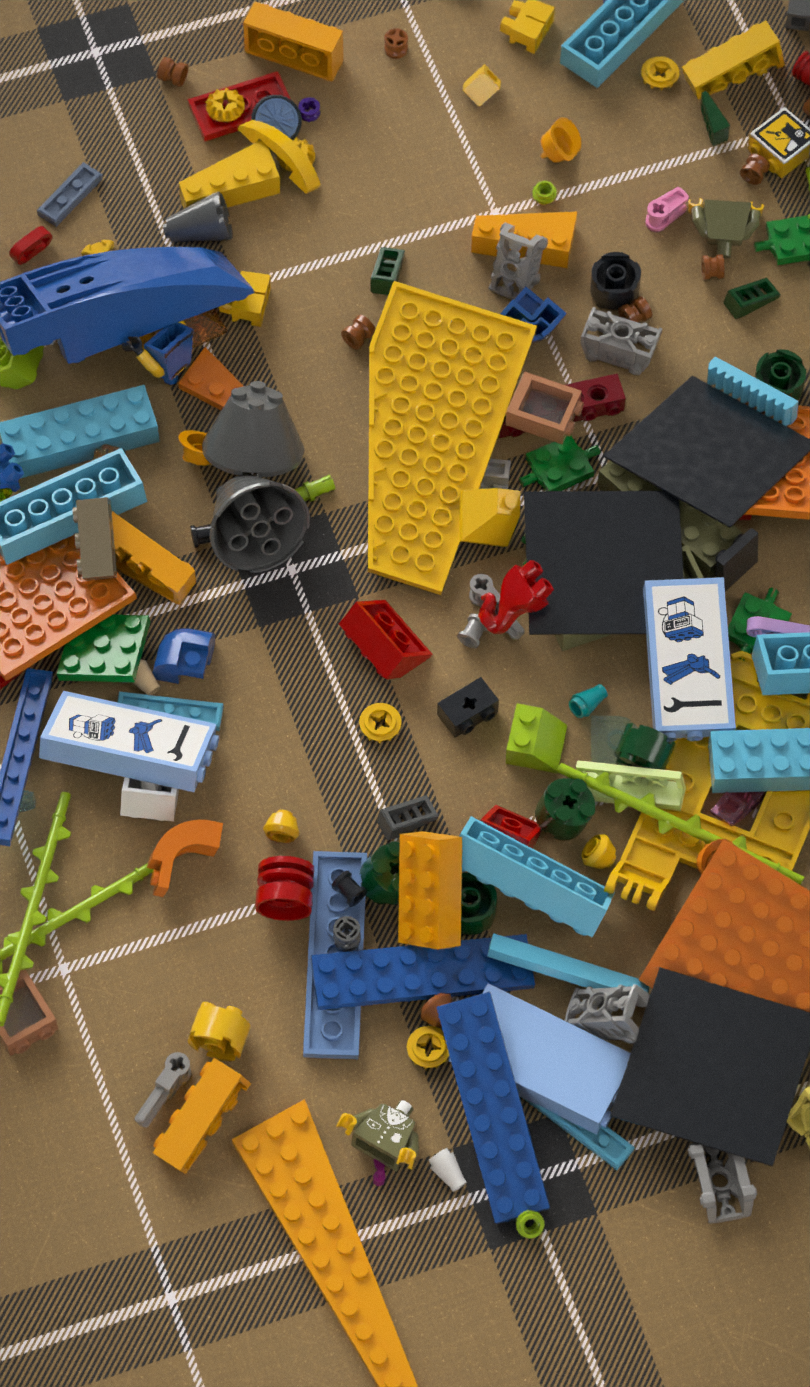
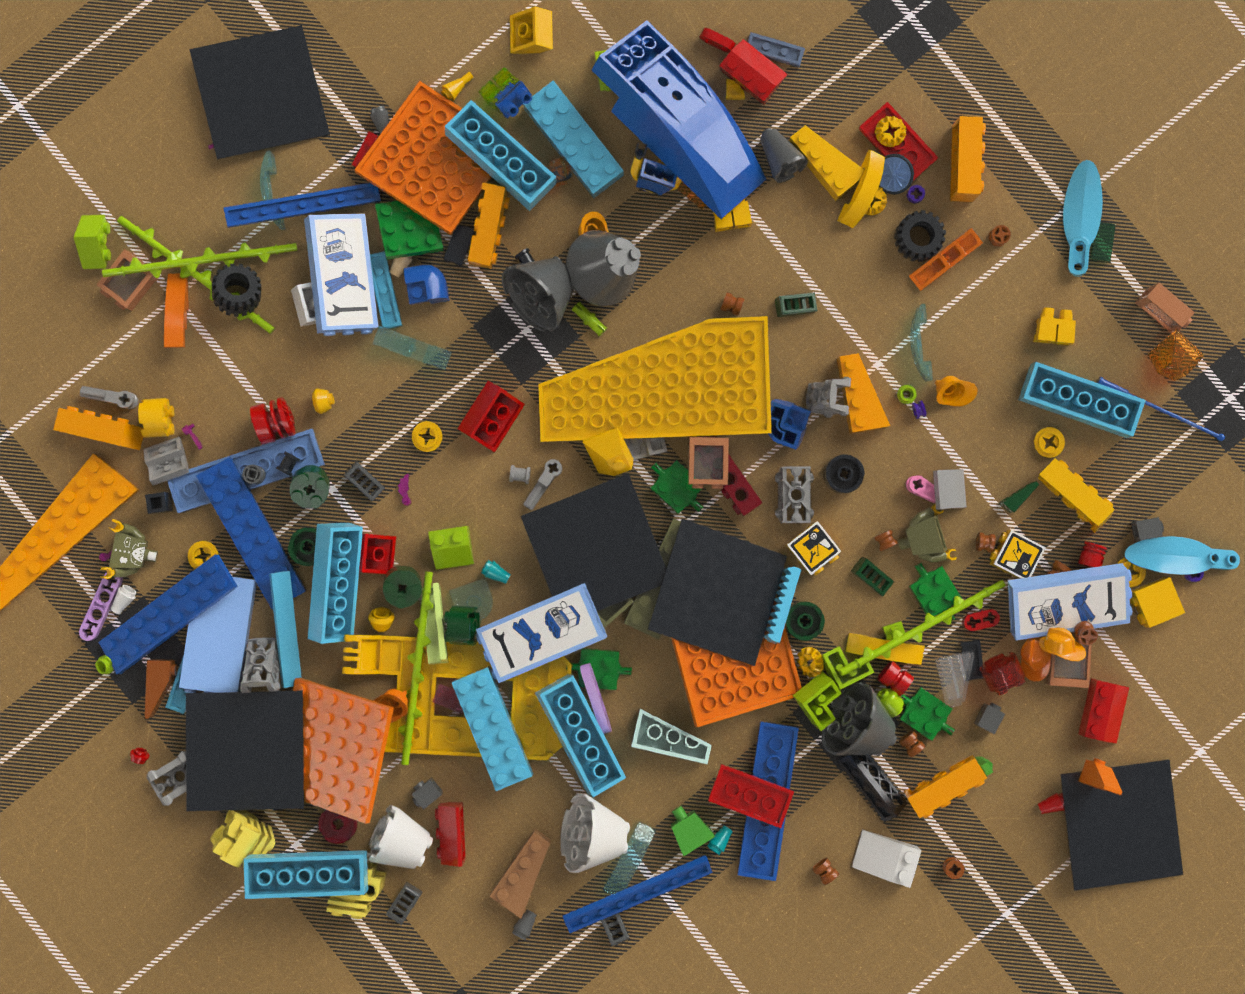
camera: 70 degrees right, 25 degrees up
(86, 963) = (176, 311): none -> orange slope
(88, 222) = (752, 71): none -> red slope
(93, 873) = (236, 303): none -> black tyre
(95, 539) = (473, 189): dark tan brick -> none
(152, 604) = (459, 245): none -> black tile
(172, 71) = (909, 80): dark orange wheel -> none
(188, 837) = (284, 337): orange arch -> none
(209, 380) = (652, 218): orange wing -> none
(250, 1009) = (188, 430): none -> magenta piece
(262, 699) = (412, 348): none -> clear light blue slope
(281, 1048) = (166, 461): none -> light grey slope
(335, 1070) = (159, 503): none -> black brick
(362, 132) = (929, 223): none -> black tyre
(400, 103) = (946, 259): none -> orange slope
(429, 1011) = (228, 554): dark orange cone -> none
(430, 890) = (295, 519): light orange brick -> none
(438, 775) = (403, 489): none -> magenta piece
(447, 1202) = (104, 607): none -> lavender beam
(468, 707) = (469, 494): black brick -> none
(481, 85) = (985, 313): yellow panel -> none
(490, 163) = (925, 367): none -> clear light blue slope
(517, 596) = (542, 499): red hips -> none
(568, 185) = (919, 409): none -> dark purple bush
(578, 1159) = (159, 677): none -> dark orange slope
(637, 311) = (821, 493): dark orange wheel -> none
(672, 1222) = (139, 755): none -> red plate
(676, 182) = (949, 489): none -> light grey slope
(693, 342) = (813, 548): none -> piece
(738, 558) = (646, 641): black tile -> none

